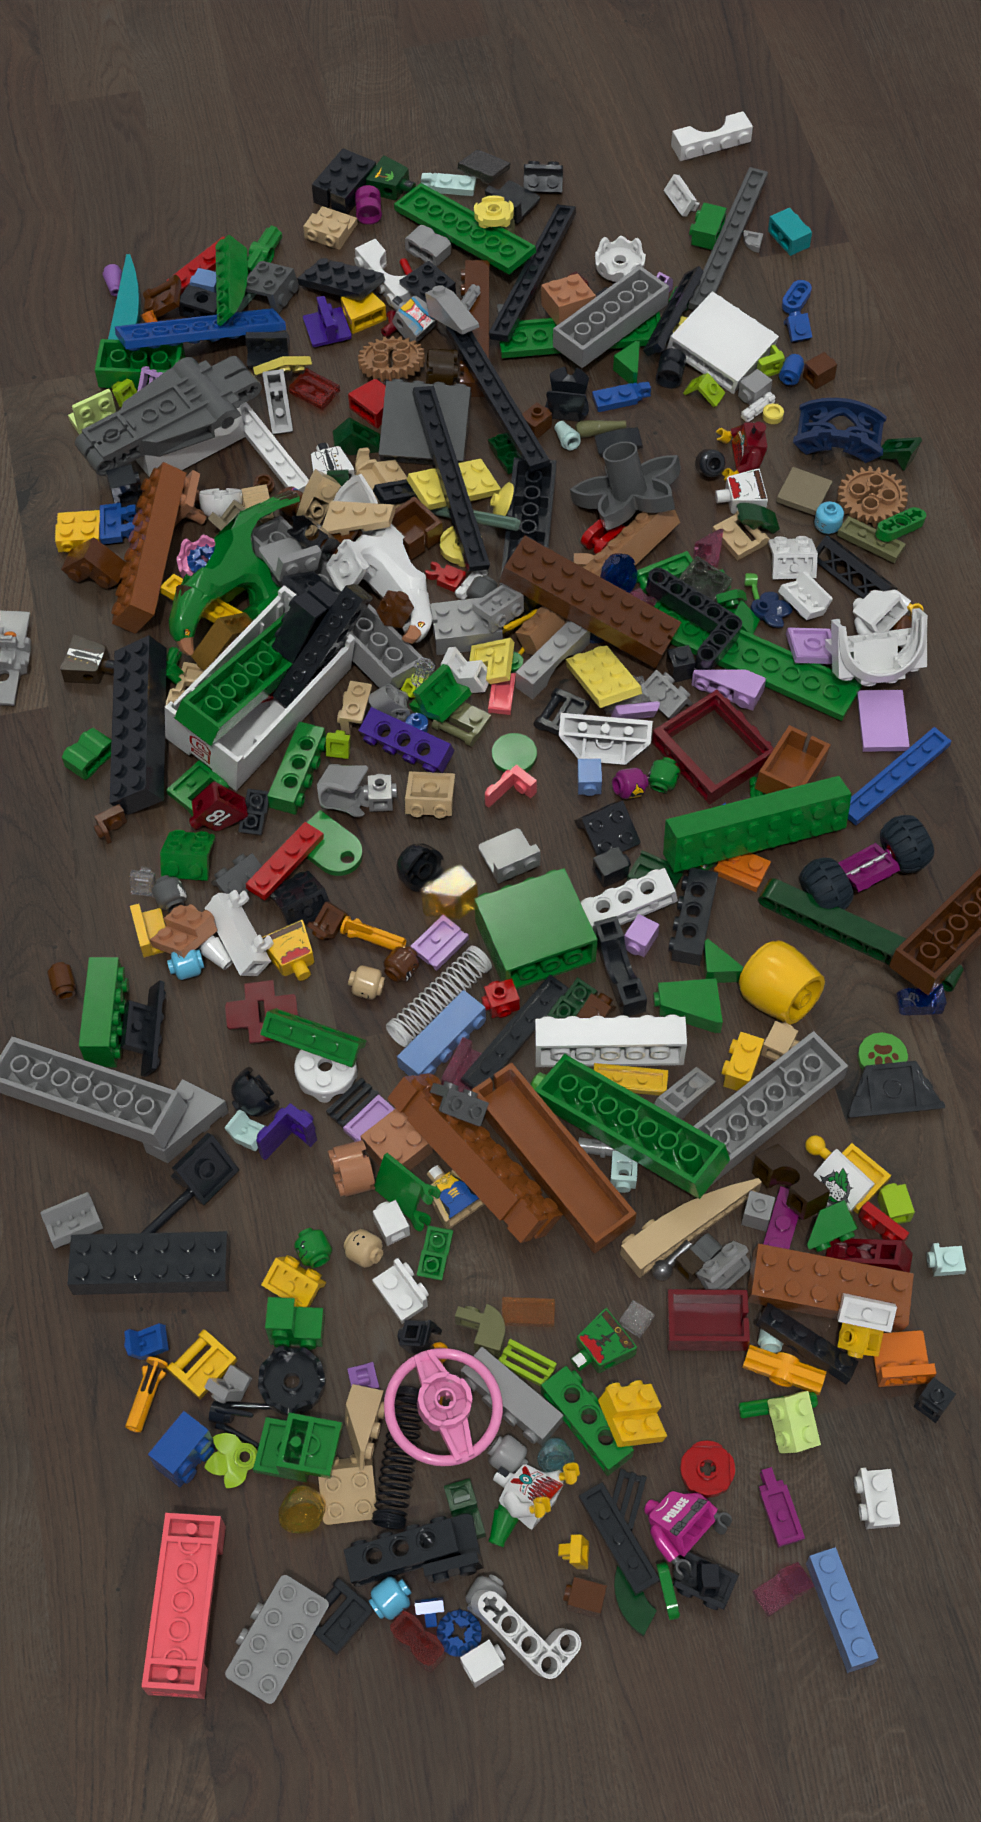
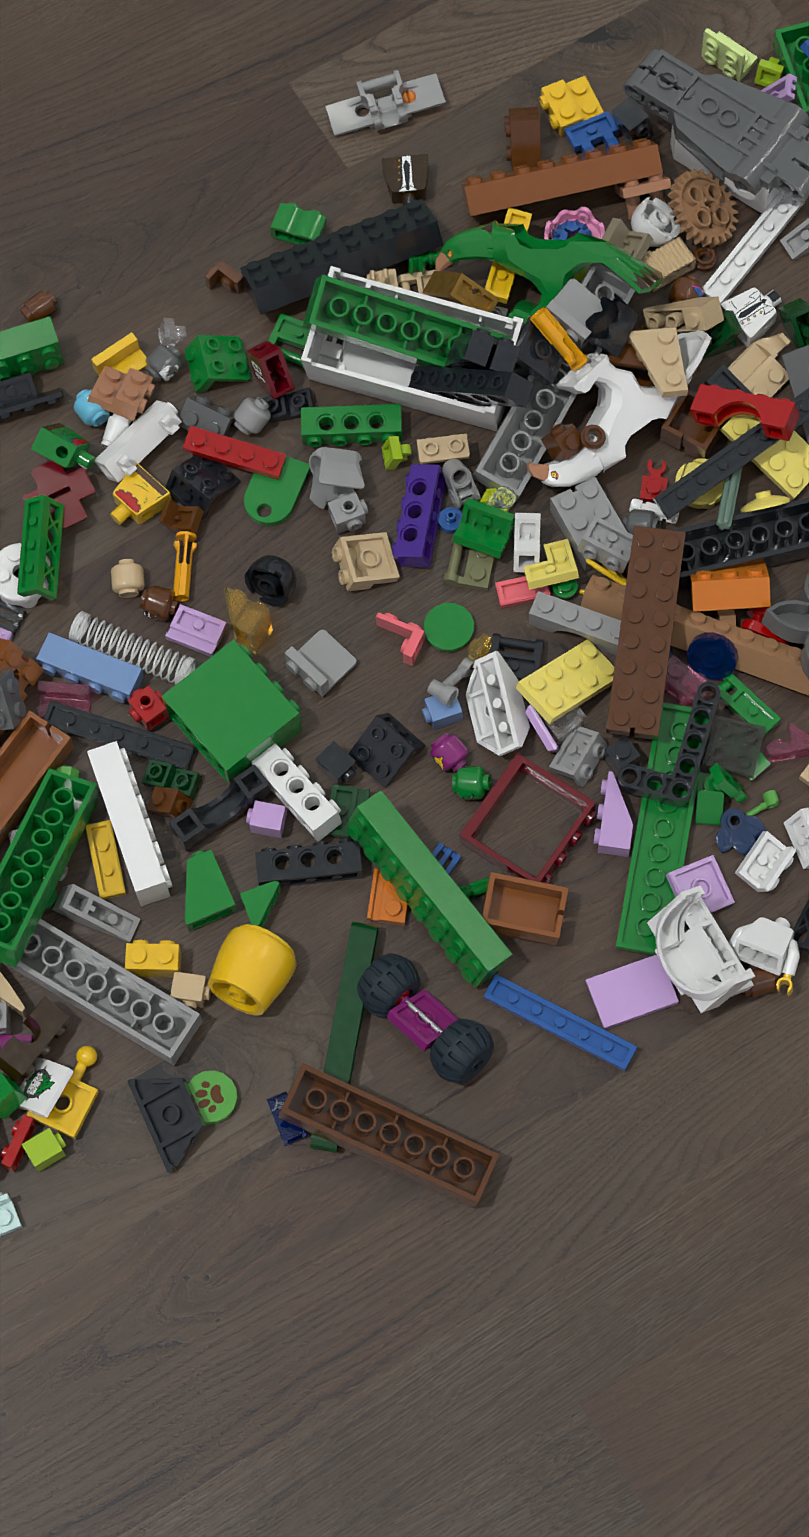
camera: 75 degrees right, 10 degrees up
(211, 998) = (63, 446): none -> green torso
(225, 464) = (702, 208): none -> medium nougat gear
(254, 837) = (252, 415): none -> light grey head
(311, 569) = (559, 338): none -> light orange piece
(404, 581) = (598, 432): none -> reddish brown plate
(444, 455) = (715, 405): none -> red arch
(545, 735) = (479, 647): none -> clear yellow plate
(572, 533) = (731, 588): none -> orange wedge
(577, 763) = (446, 691): none -> light grey brick

